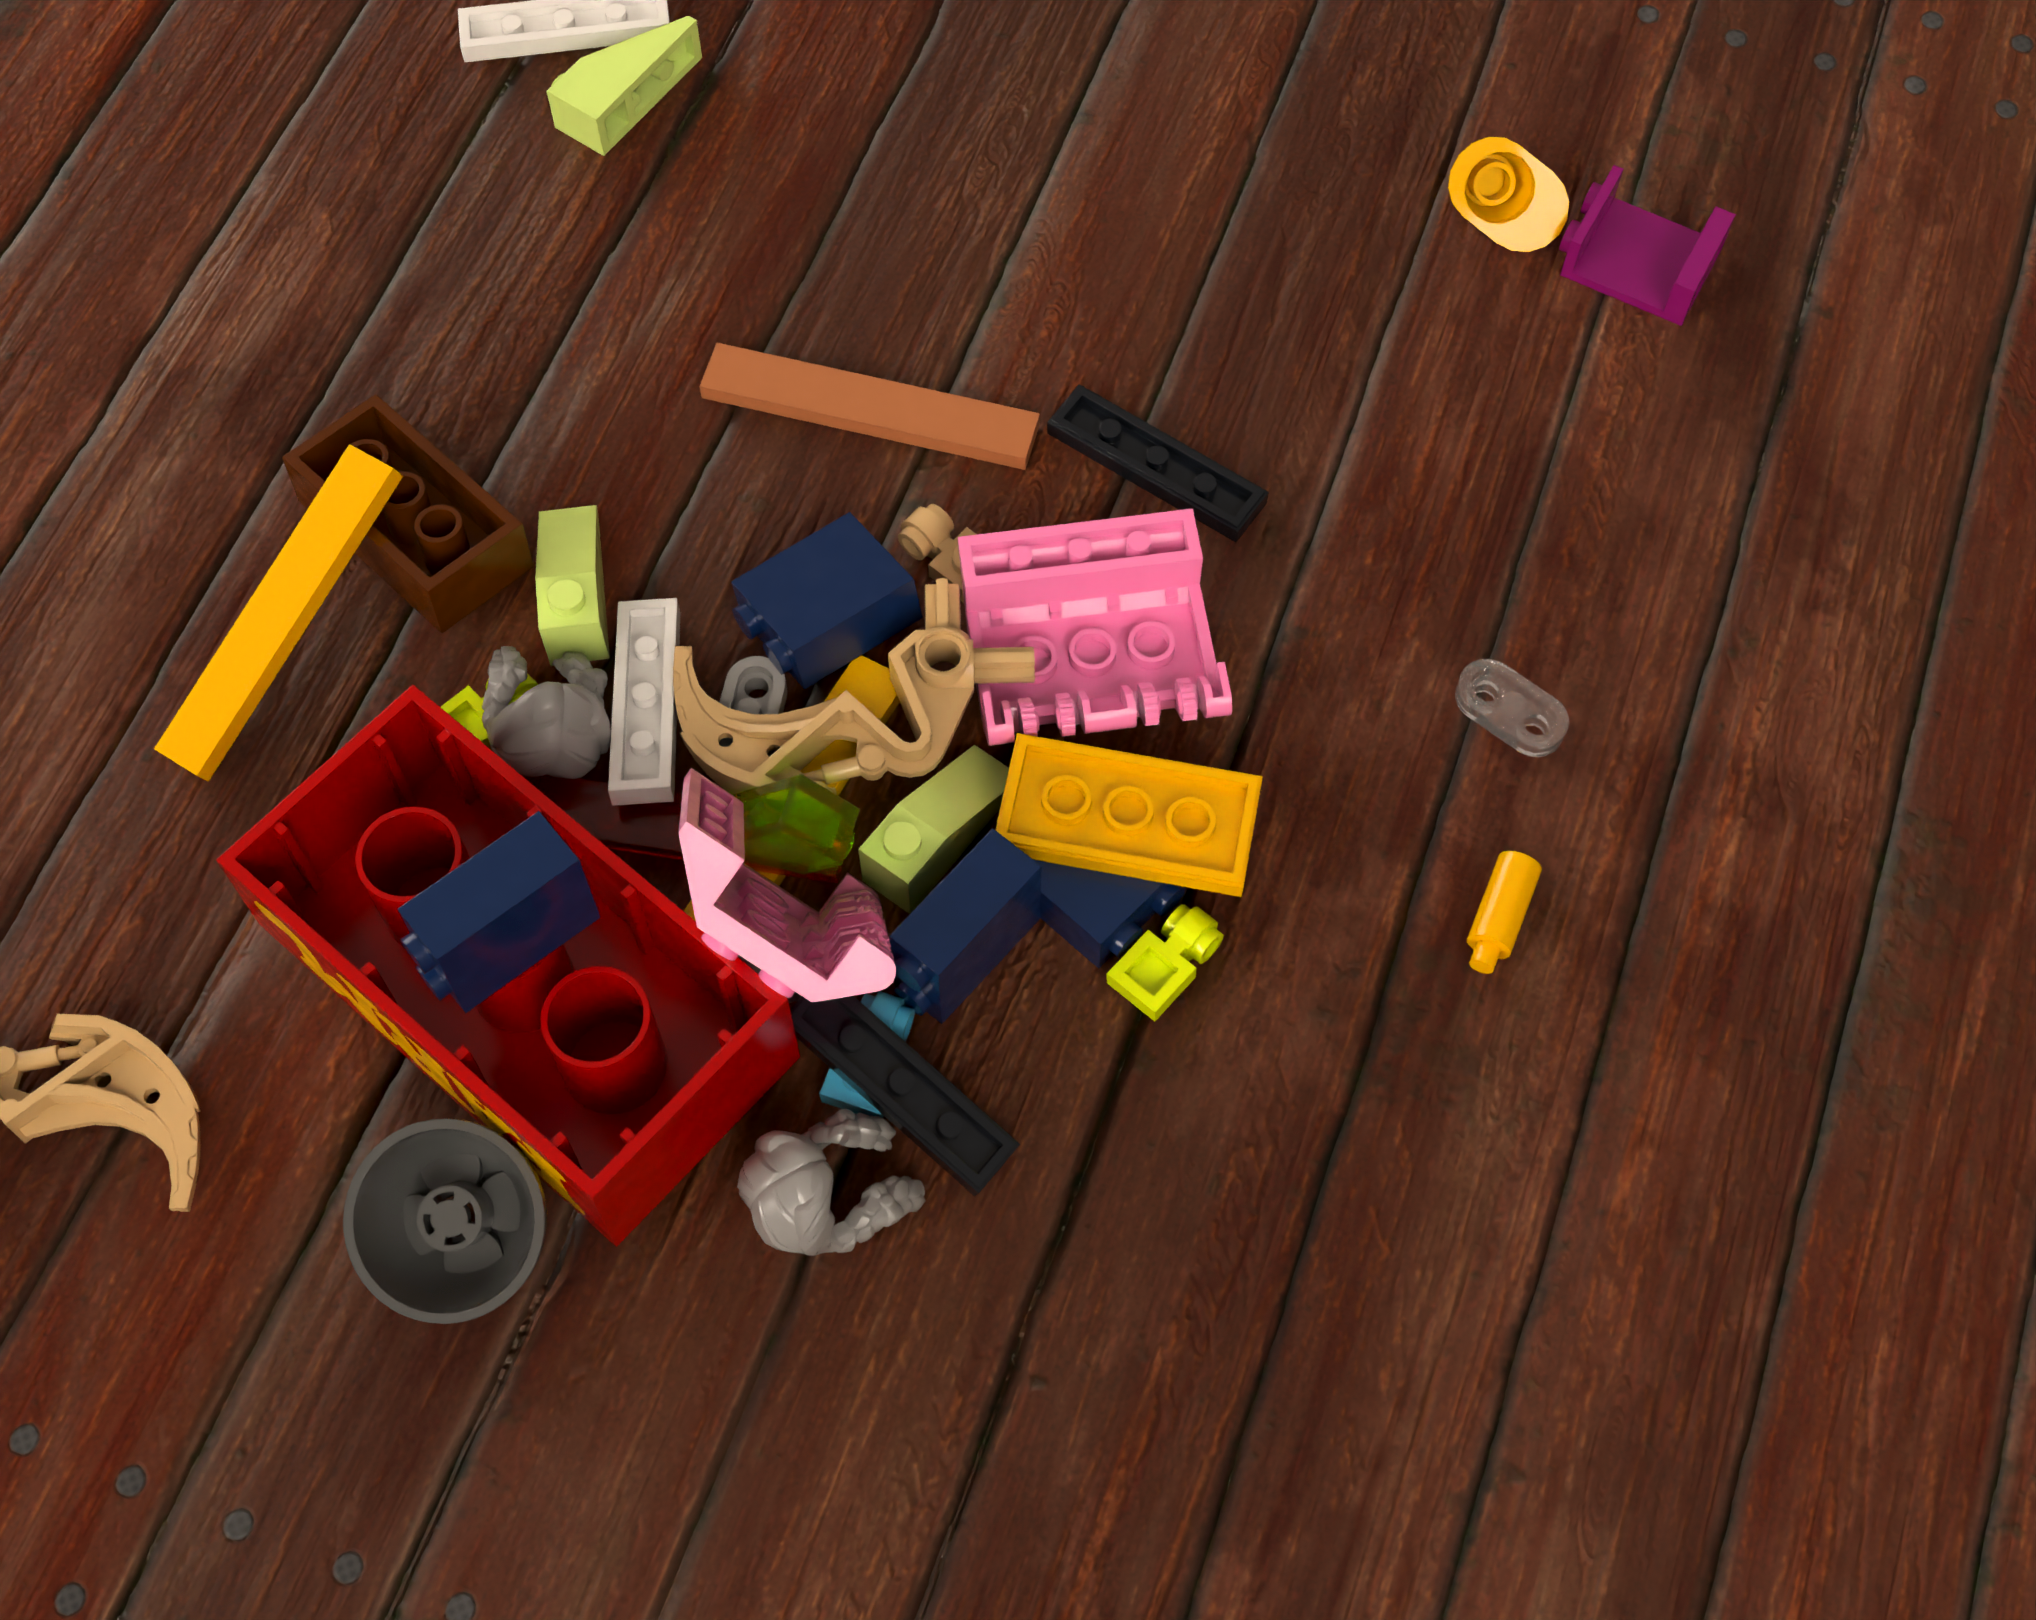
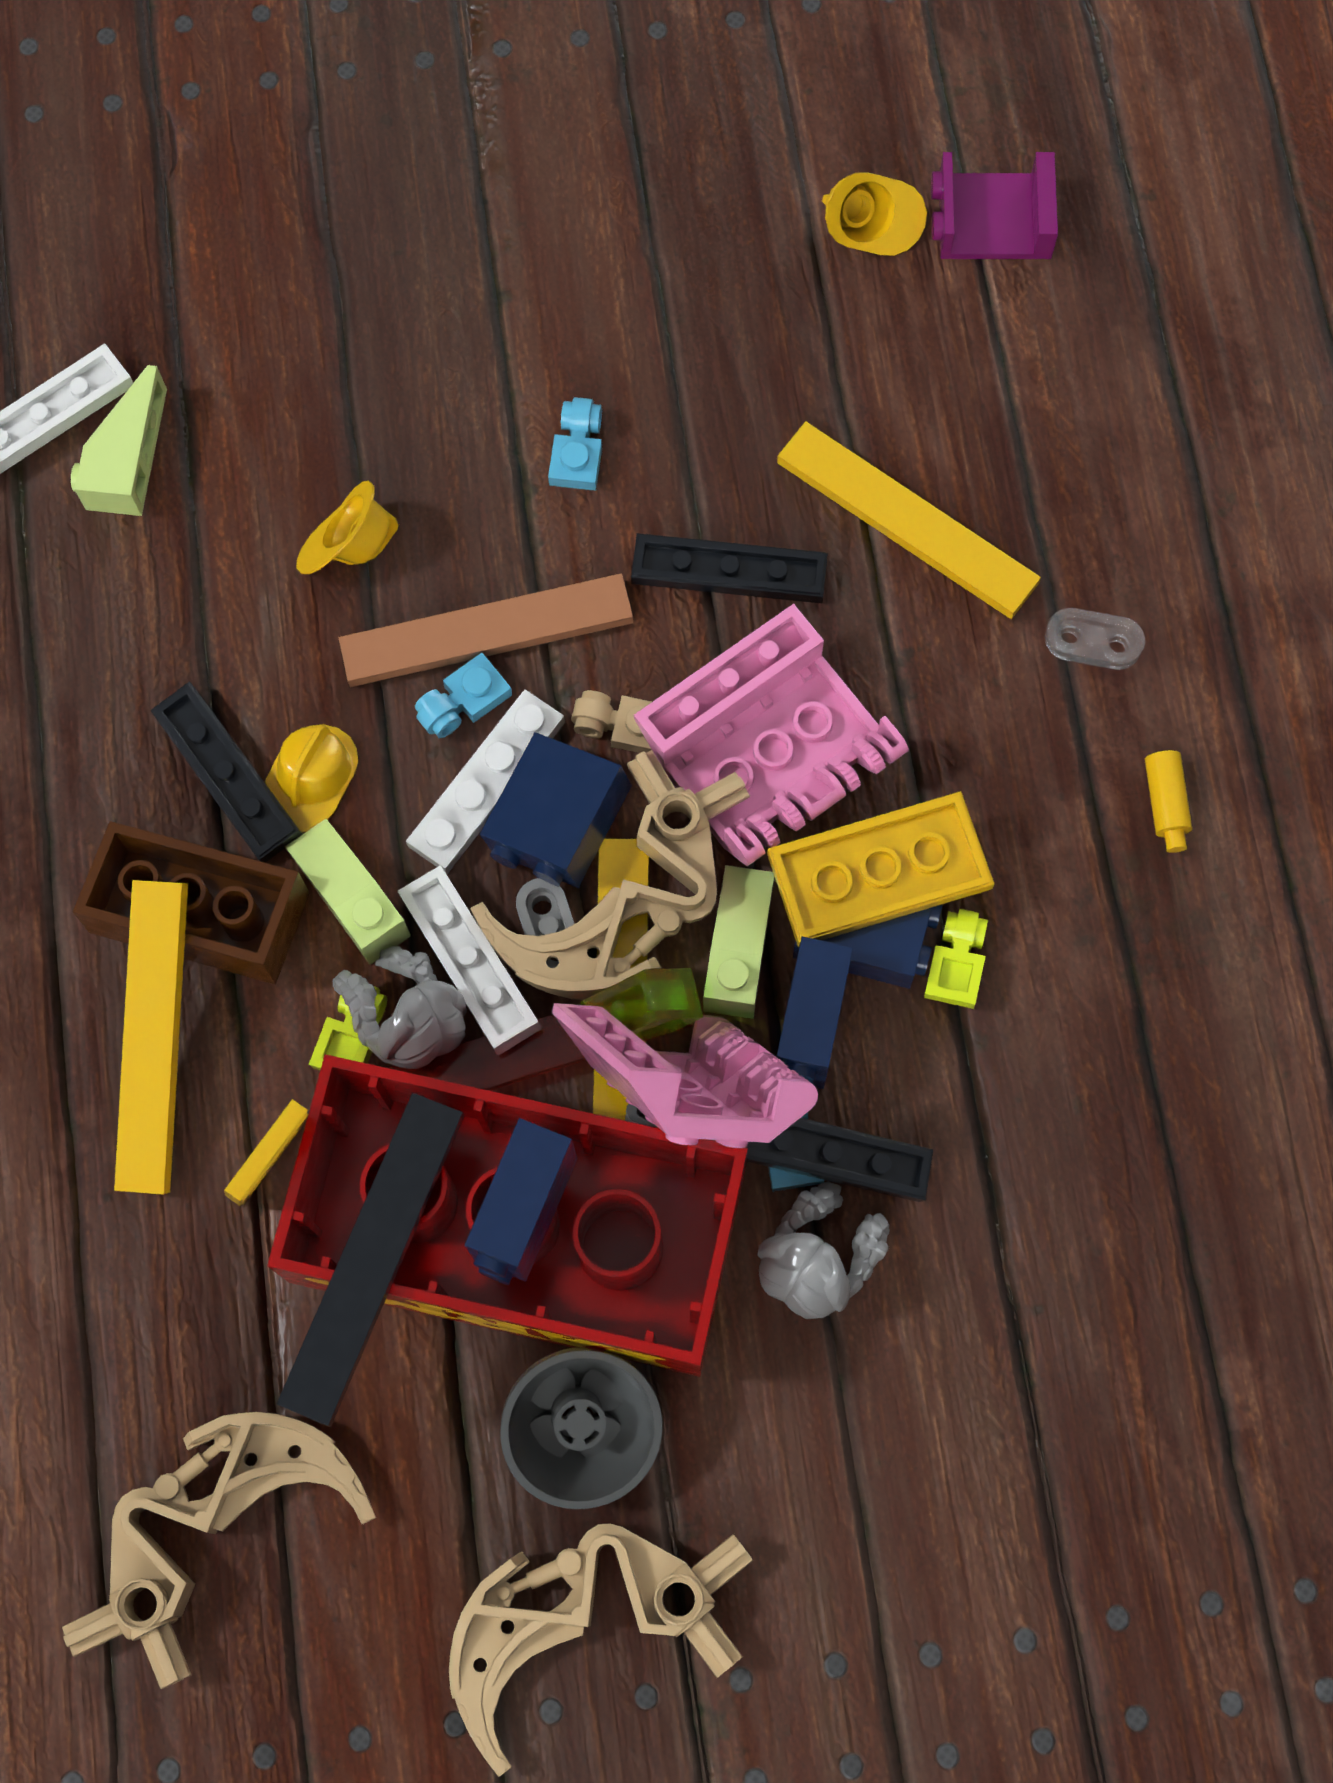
camera: 25 degrees left, 10 degrees up
(284, 752) = (266, 1153): none -> yellow tile
(317, 906) = (370, 1260): none -> black tile
(421, 1434) = (646, 1575): none -> tan piece
(527, 417) = (226, 772): none -> black tile
(606, 457) = (313, 773): none -> yellow piece
(705, 572) = (476, 789): none -> white plate
(794, 258) = (350, 534): none -> yellow piece
(821, 456) = (472, 689): none -> medium azure plate
(1063, 290) = (577, 456): none -> medium azure plate
(1377, 505) = (908, 520): none -> yellow tile

